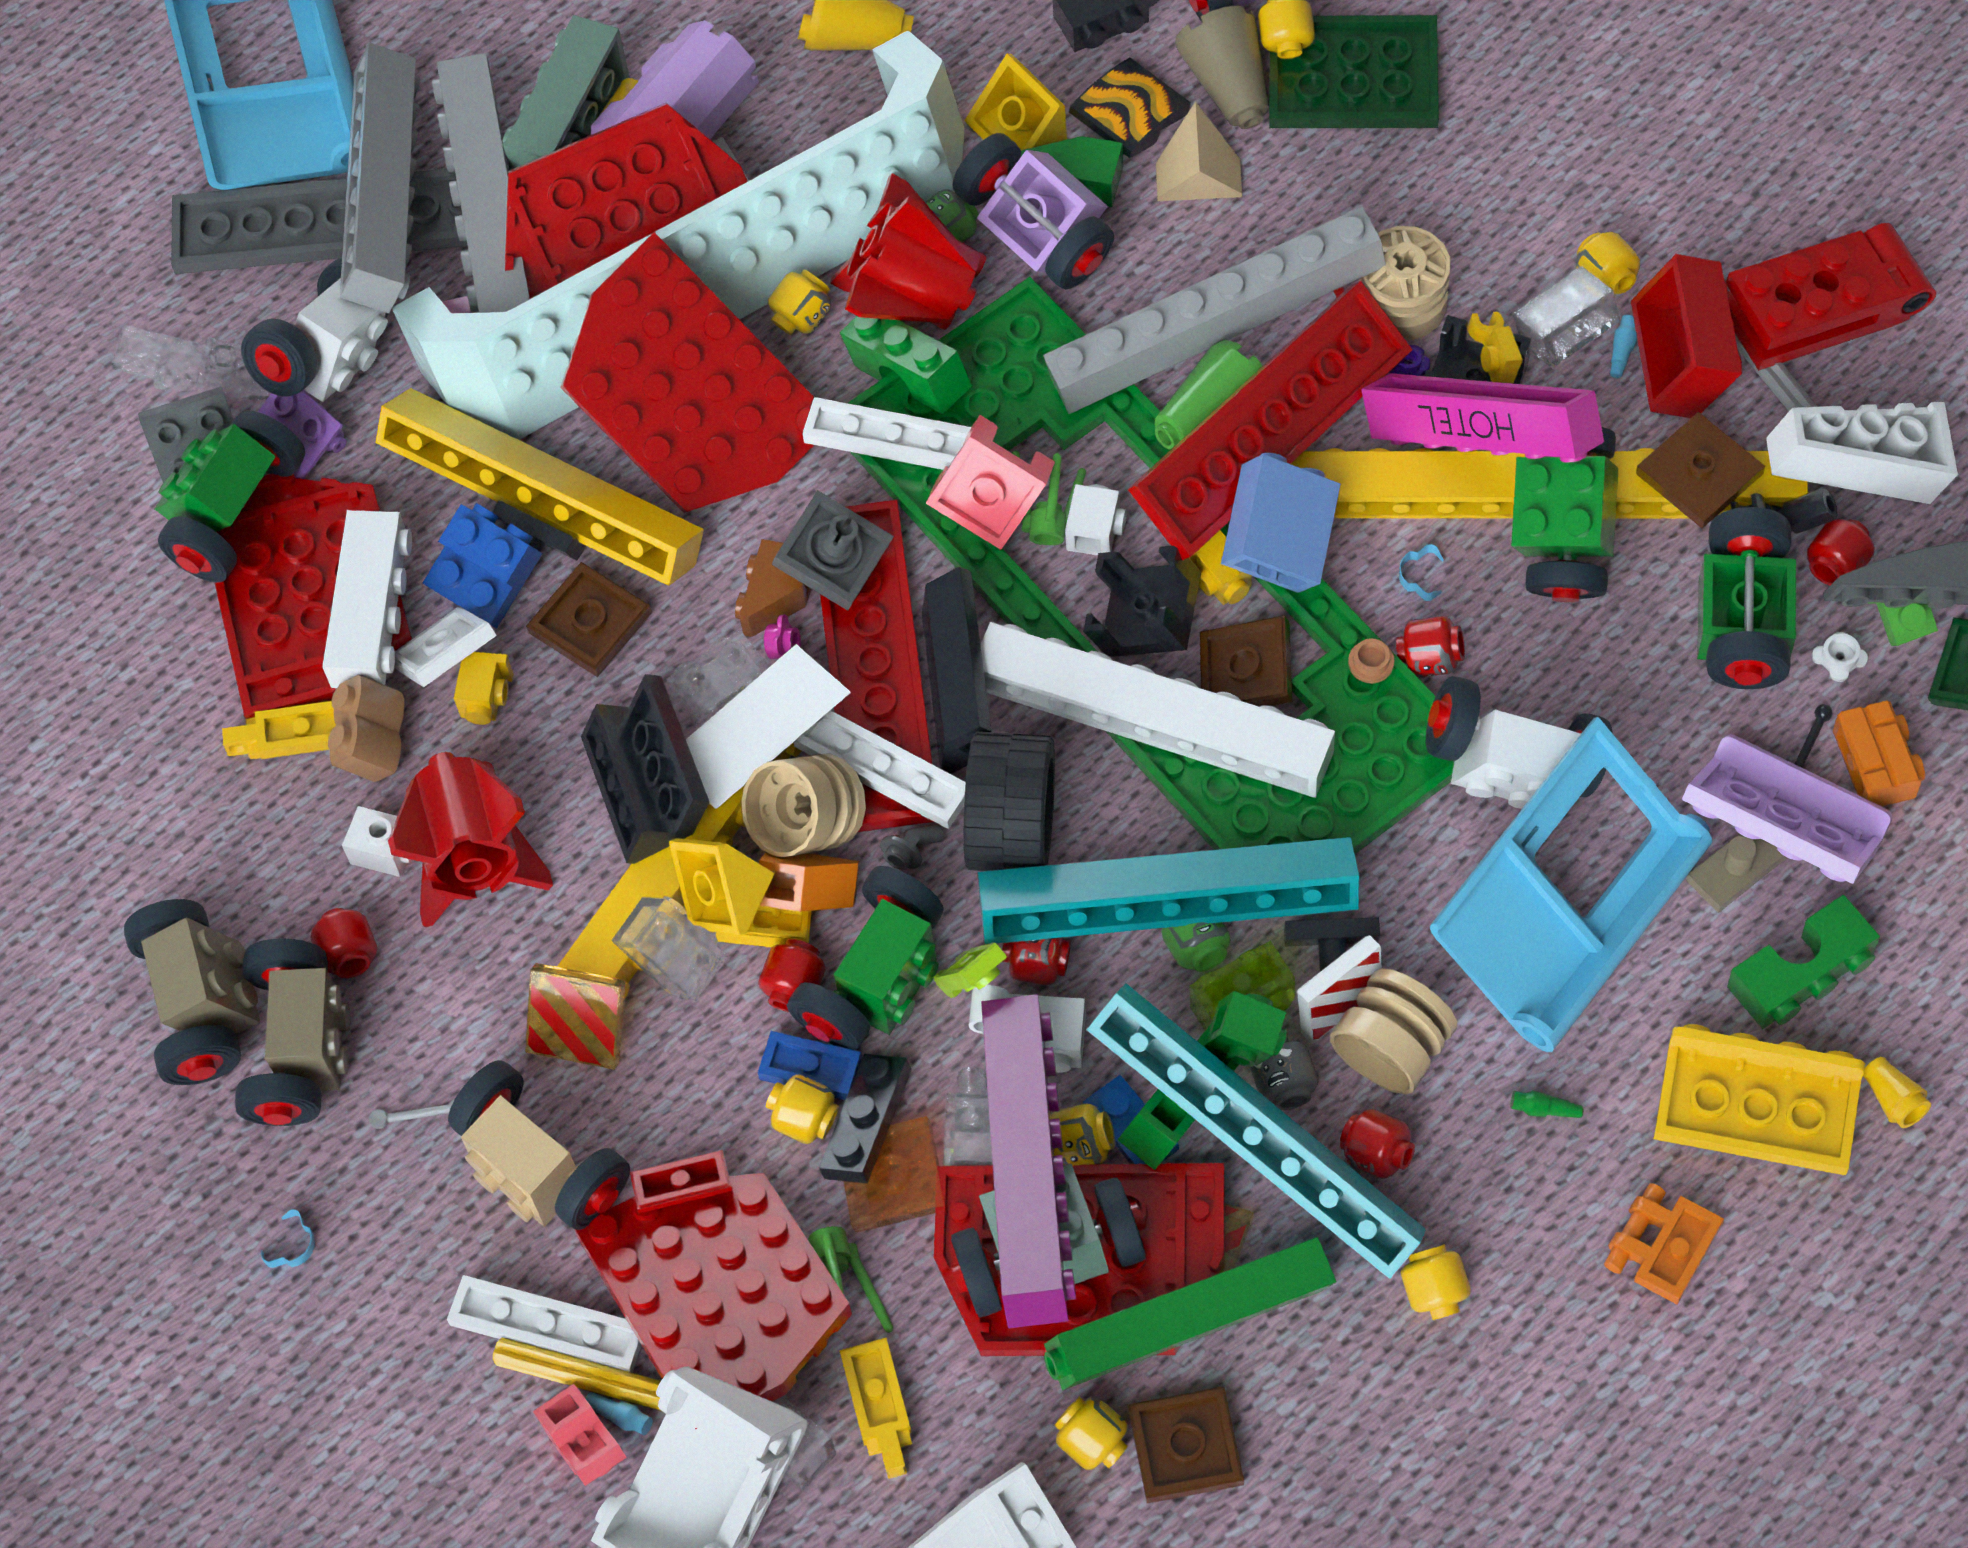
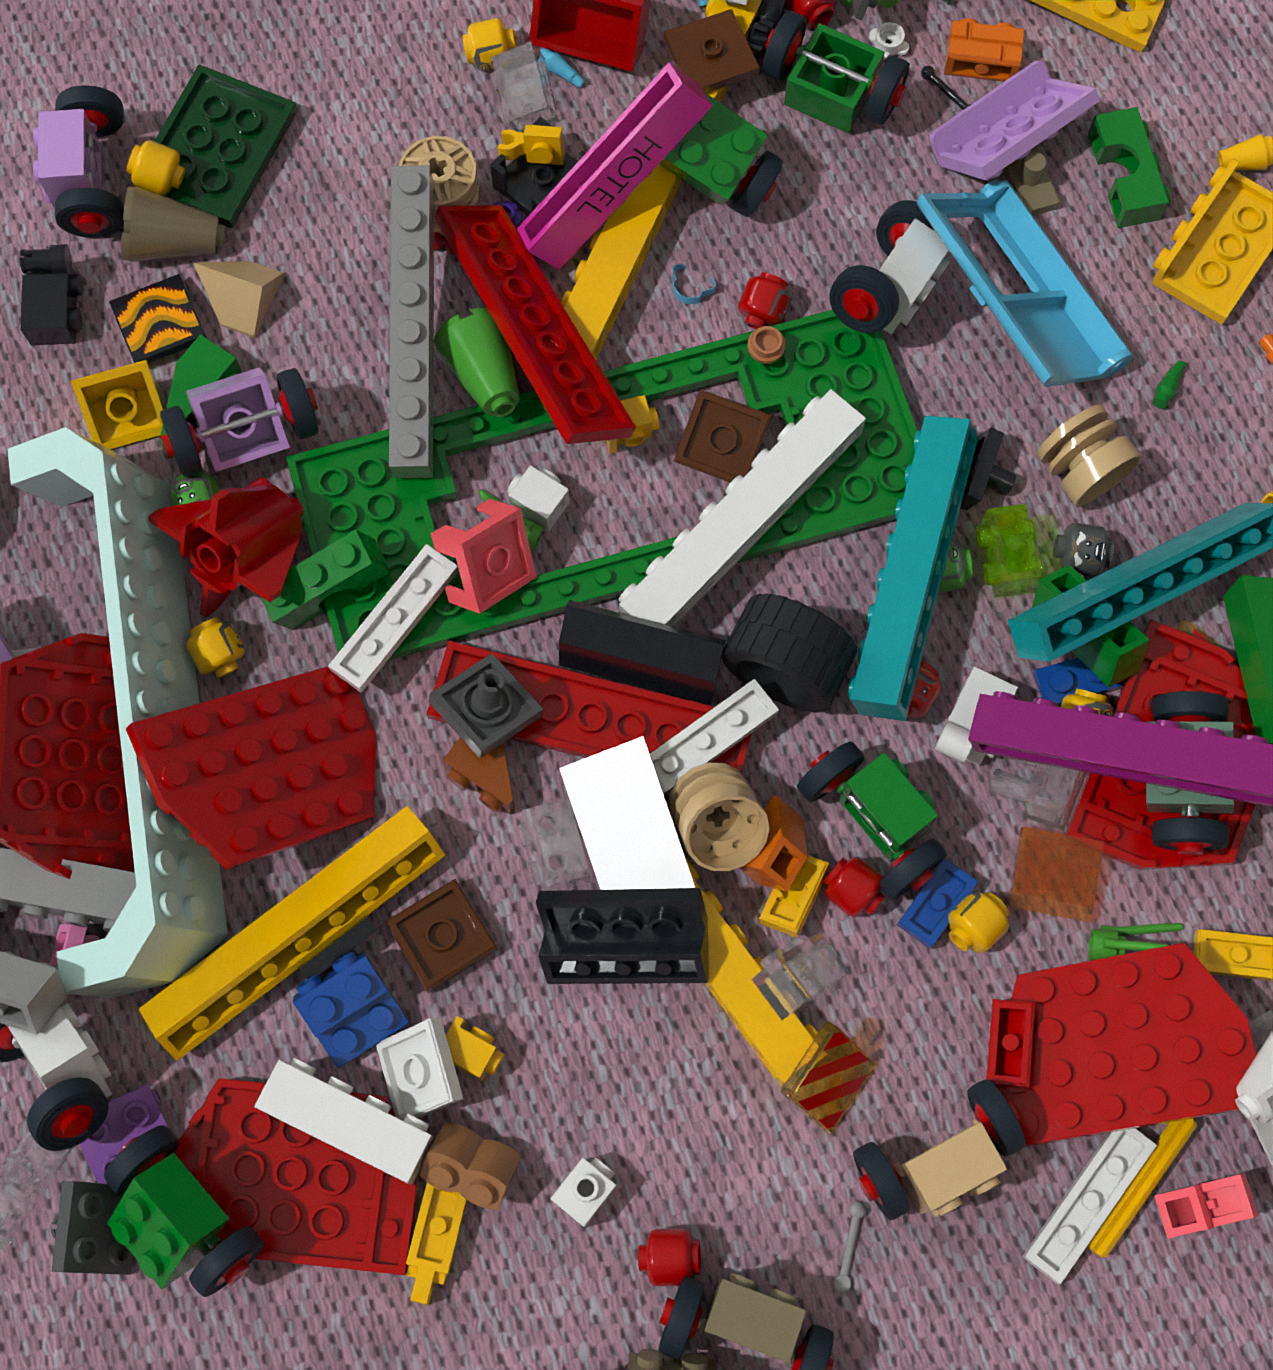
camera: 75 degrees left, 10 degrees up
(464, 834) = (620, 1111): red brick -> none
(621, 1414) = (1185, 1165): medium azure piece -> none
(719, 885) = (772, 912): yellow slope -> none
(780, 638) = (538, 782): dark pink plate -> none
(865, 1118) = (1006, 875): black plate -> none
(903, 851) = (773, 754): dark grey plate -> none
(971, 970) = (926, 737): lime hinge -> none
(1146, 606) = (641, 487): black panel -> none
(1247, 1029) = (1063, 552): green brick -> none
(1281, 522) = (629, 351): medium blue brick -> none
(1336, 988) = (1039, 478): white tile -> none
(1377, 1143) = (1165, 507): red head -> none

